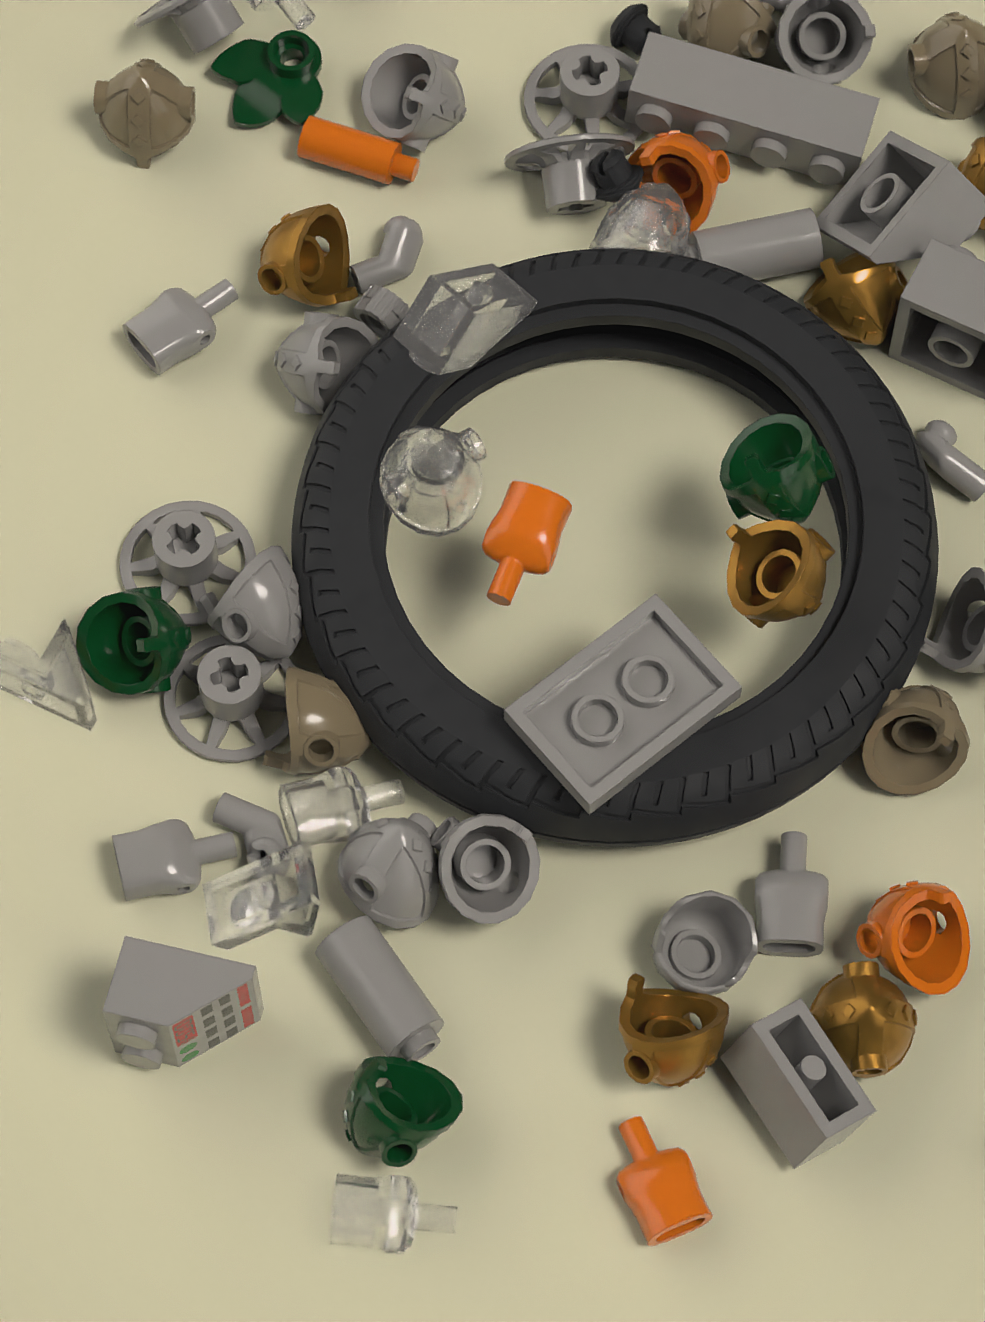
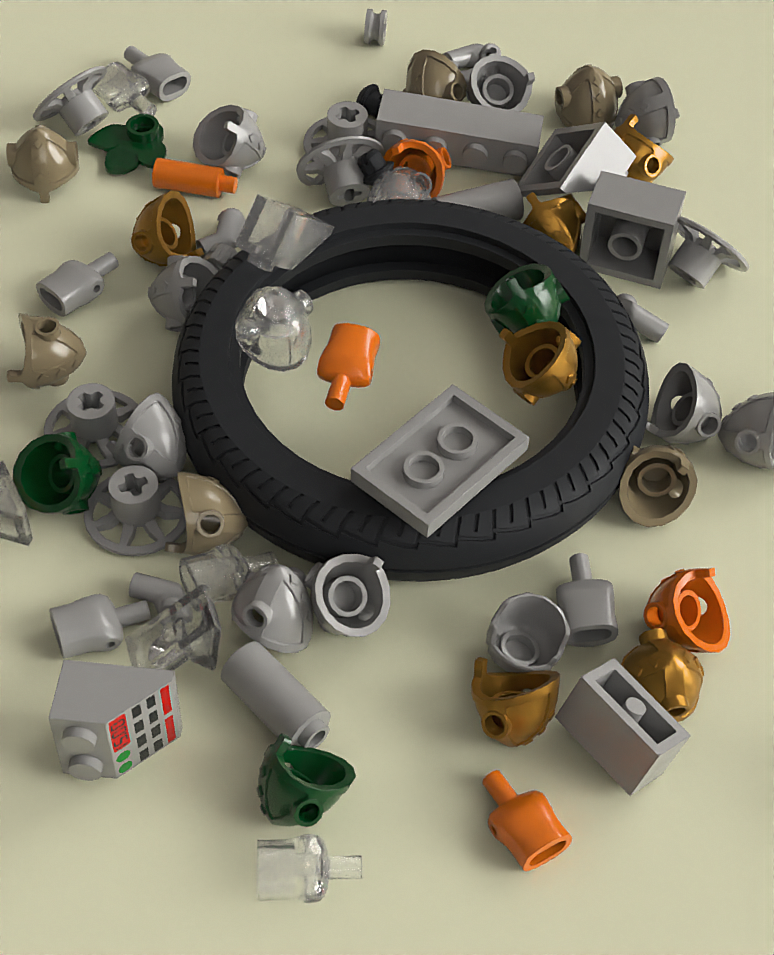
camera: 10 degrees left, 15 degrees down
(136, 448) = (50, 352): none -> dark tan helmet

